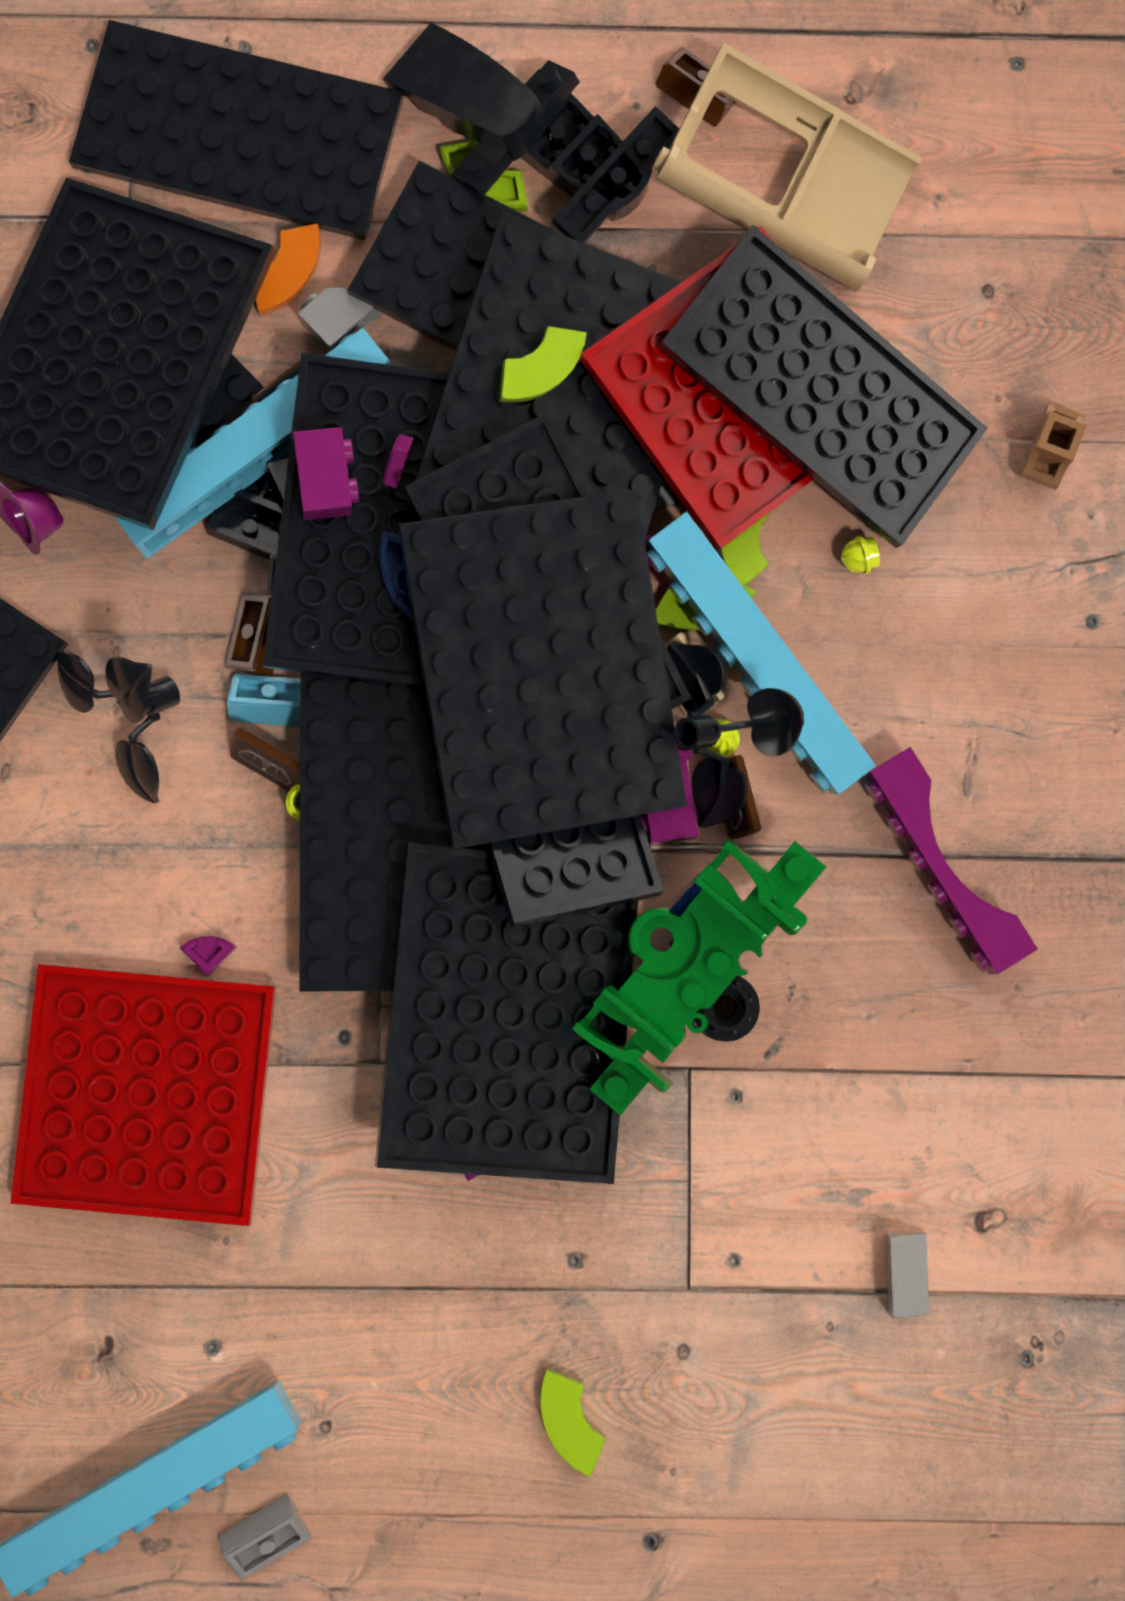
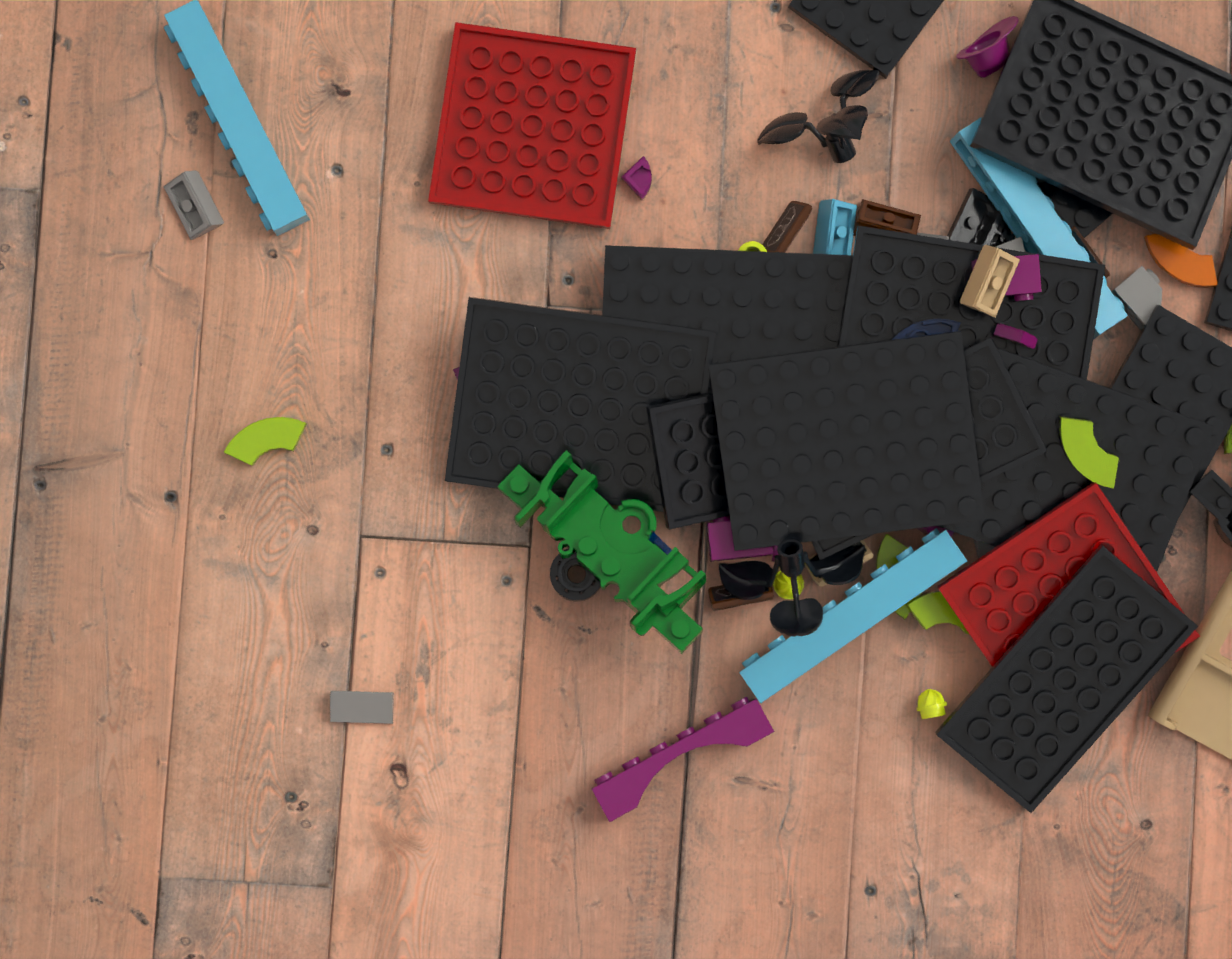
camera: 90 degrees right, 0 degrees up
(330, 492) = (989, 280): none -> tan slope
(1053, 445) = (1015, 865): medium nougat brick -> none

